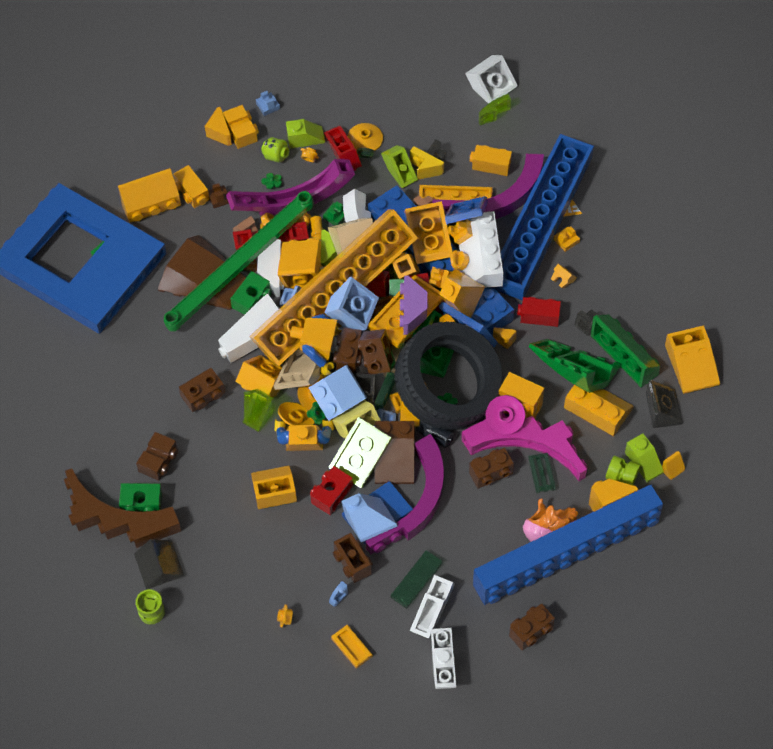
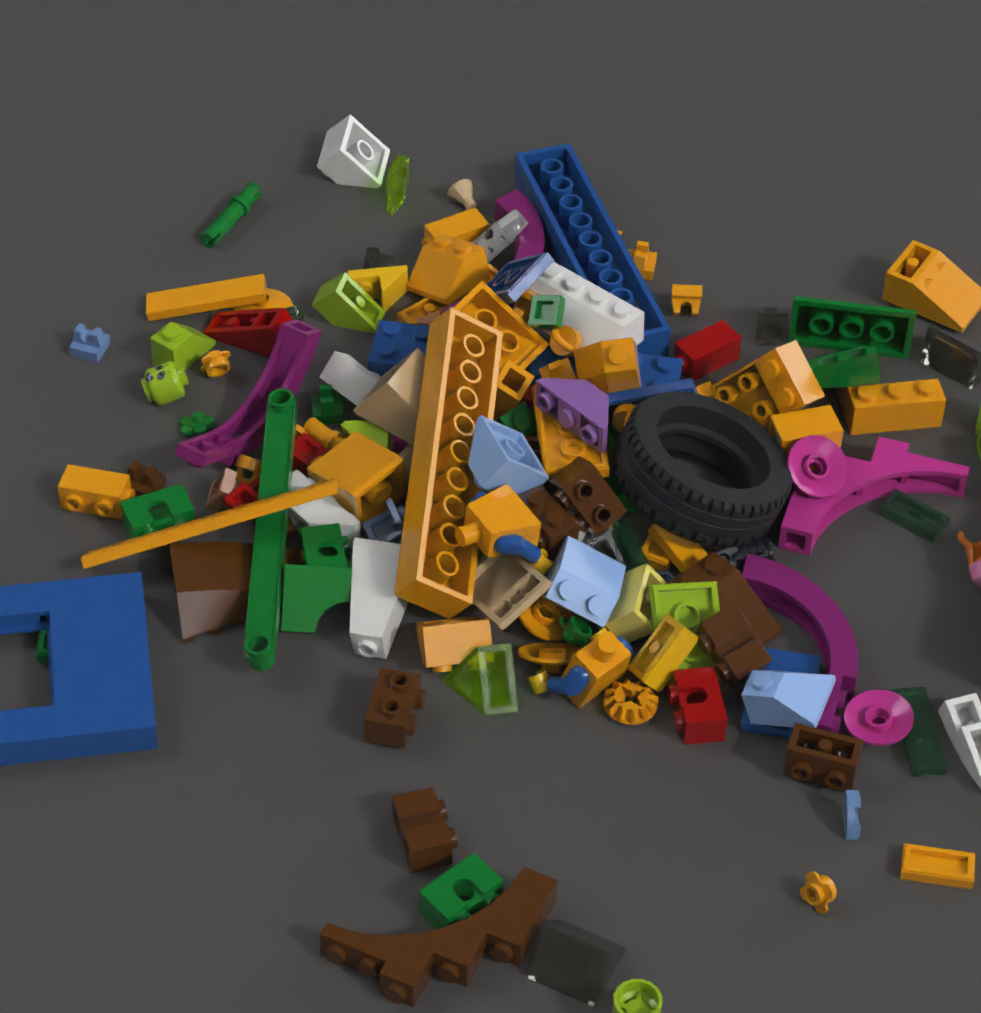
camera: 45 degrees left, 15 degrees down
(149, 195) = (51, 531): light orange slope -> none
(197, 213) = (140, 521): none -> green brick
(212, 241) = (210, 523): none -> light orange tile
(217, 128) = (58, 405): light orange slope -> none
(223, 307) = (309, 593): none -> green tile
(240, 126) = (84, 389): light orange brick -> none
(274, 487) = (623, 751): light orange slope -> none
(314, 471) = (628, 712): none -> light orange gear
(336, 454) = (663, 653): none -> yellow slope
(340, 114) = (206, 297): none -> light orange tile
(368, 474) = (732, 646): none -> reddish brown brick
(401, 551) = (879, 717): none -> dark pink dish
(405, 72) = (236, 208): none -> green pin
(459, 240) = (546, 311): none -> green tile
(461, 178) = (448, 269): none -> light orange slope
(491, 467) = (858, 545): reddish brown brick -> none
(501, 177) = (501, 234): none -> light grey hinge
(522, 137) = (462, 193): none -> tan rock
(528, 357) = (771, 385): none -> light orange slope

